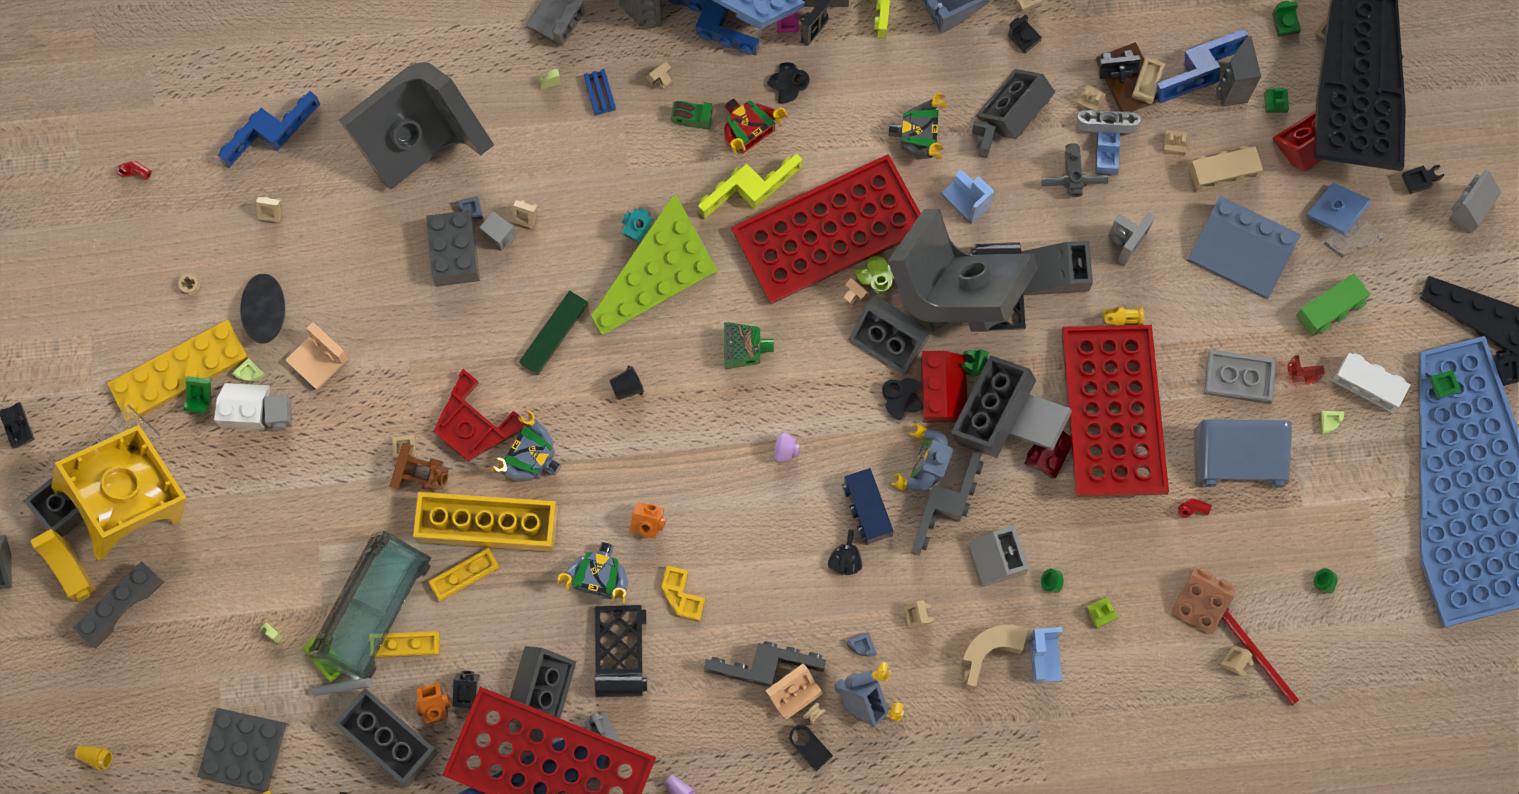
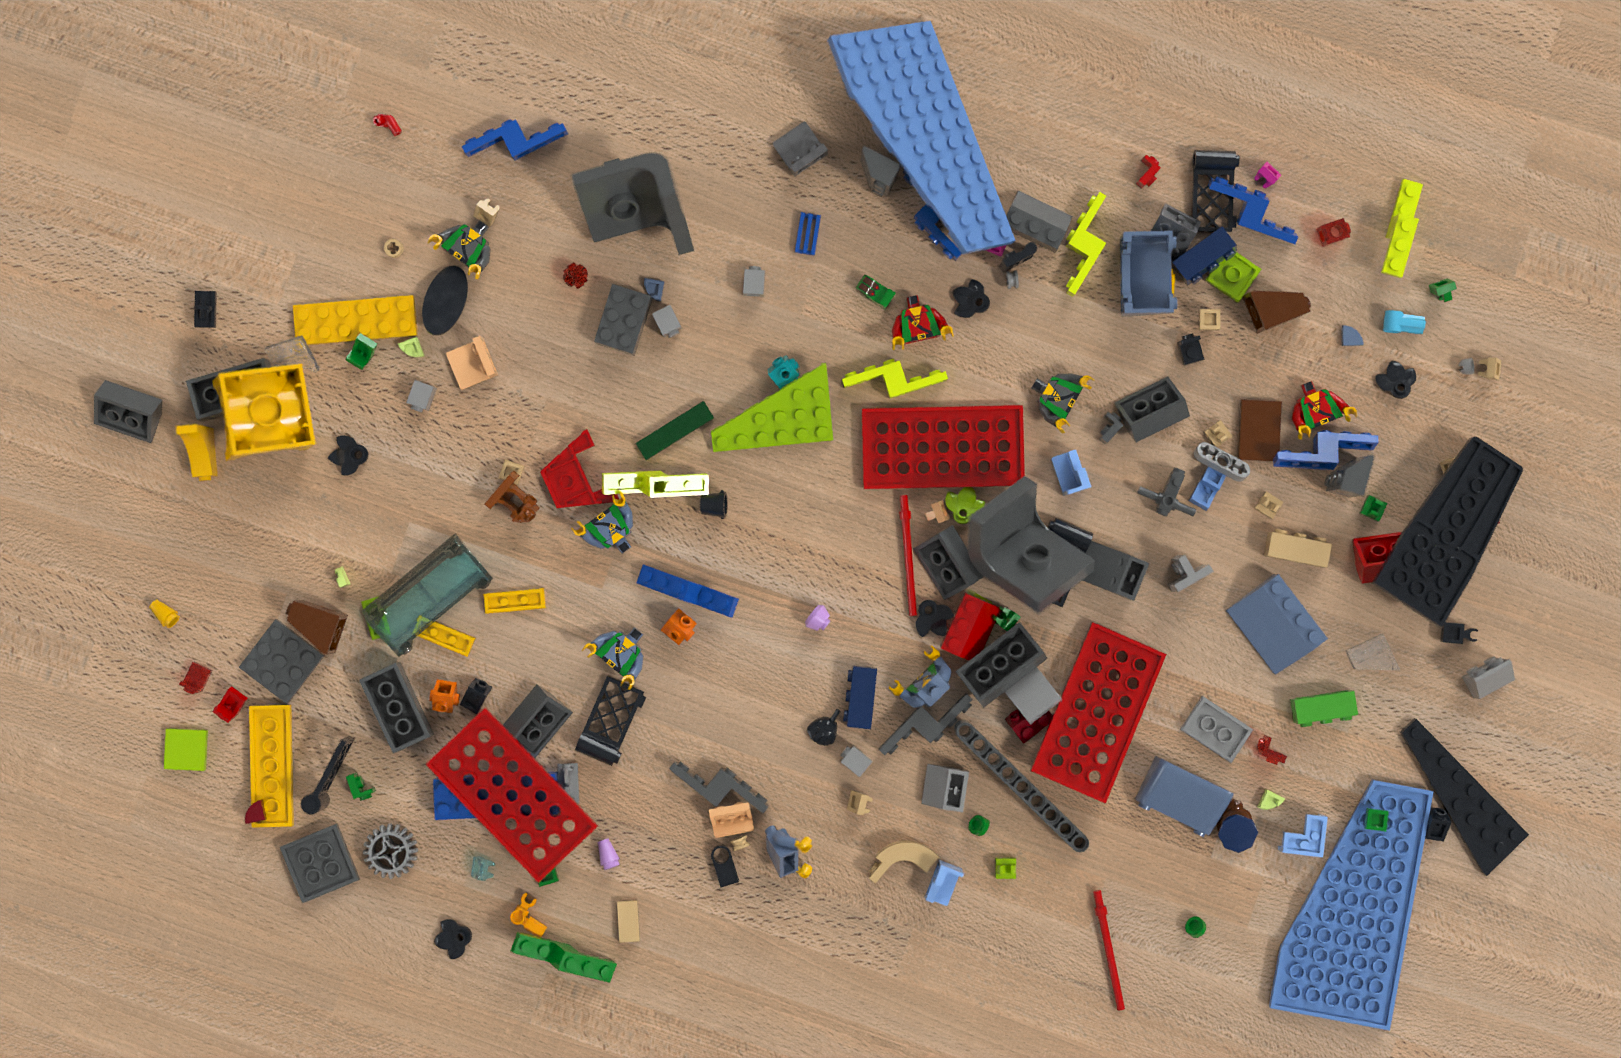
camera: 20 degrees right, 15 degrees up
(102, 618) = (228, 499): dark grey arch -> none
(223, 505) = (346, 456): none -> black plate
(241, 406) = (395, 375): white slope -> none
(261, 247) = (465, 245): none -> torso
(264, 686) = (317, 624): none -> reddish brown slope
(341, 687) = (378, 651): light grey bar -> none
(385, 227) = (575, 275): none -> clear red gear
(485, 521) = (549, 568): yellow brick -> none
(524, 213) = (696, 316): tan tile -> none
(551, 80) = (773, 204): yellowish green tile -> none
(557, 388) = (655, 483): none -> bracket
(567, 157) = (754, 281): none -> light grey brick
(639, 478) = (687, 591): none -> blue bracket
(660, 75) = (865, 242): tan tile -> none
(684, 604) = (677, 706): yellow tile -> none
(743, 345) = (825, 516): torso -> none
(819, 45) = (1012, 279): none -> light grey bush
(825, 311) = (905, 516): none -> red bar
(862, 645) = (804, 805): sand blue tile -> none
(893, 572) = (855, 760): none -> light grey brick
(1086, 517) = (1026, 794): none -> dark grey beam
(1119, 67) = (1253, 421): black hips -> none
(1124, 316) = (1146, 635): yellow piece -> none
(1147, 81) = (1274, 441): tan tile -> none
(1175, 31) = (1318, 409): none -> torso
(1193, 505) = (1119, 817): red arm -> none
(1203, 600) = (1091, 897): nougat bracket -> none
(1237, 659) = (1092, 956): tan tile -> none
(1286, 18) = (1420, 440): green bracket -> none
(1312, 459) = (1236, 827): none -> dark blue piece
(1339, 208) = (1373, 628): medium blue plate -> none
(1371, 382) = (1320, 785): white brick -> none
(1393, 438) = (1311, 841): none -> light blue panel

